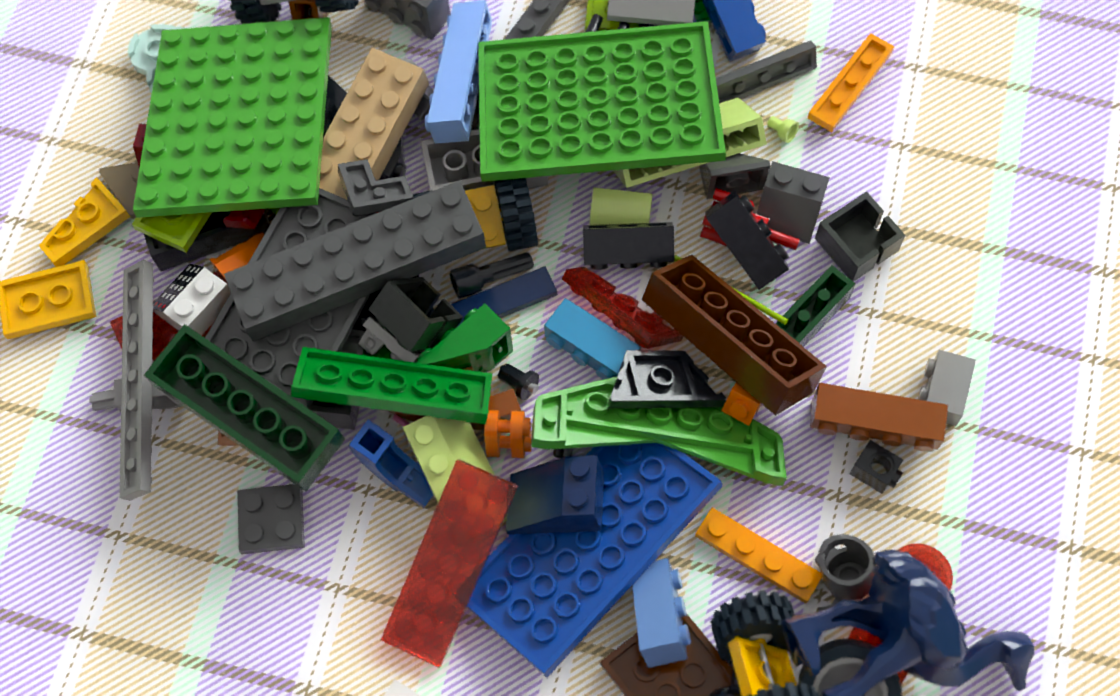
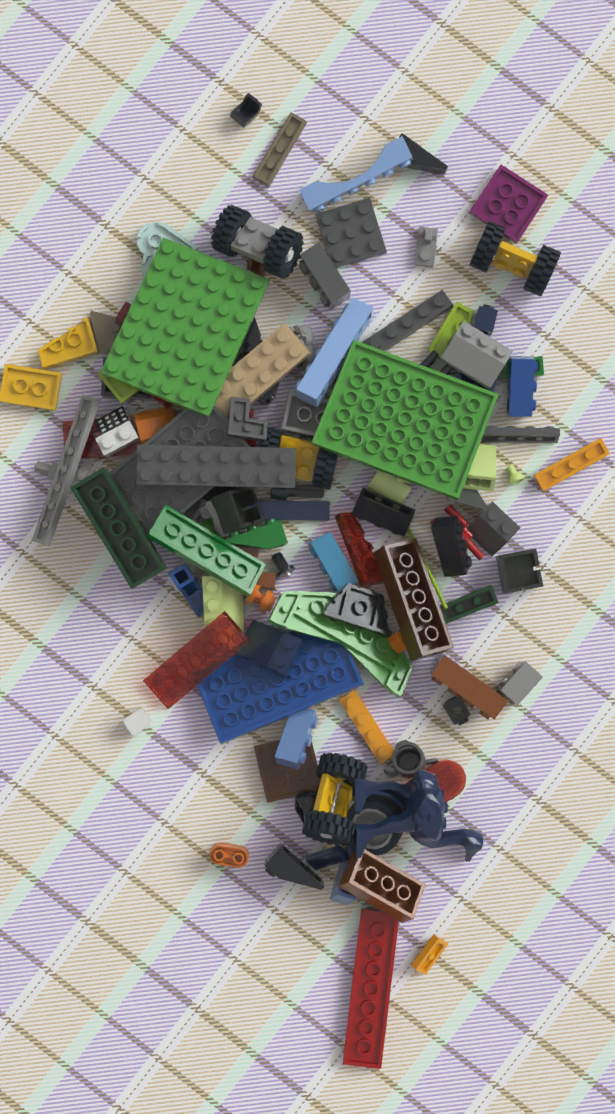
camera: 20 degrees right, 20 degrees up
(270, 519) = (108, 584): dark grey plate -> none

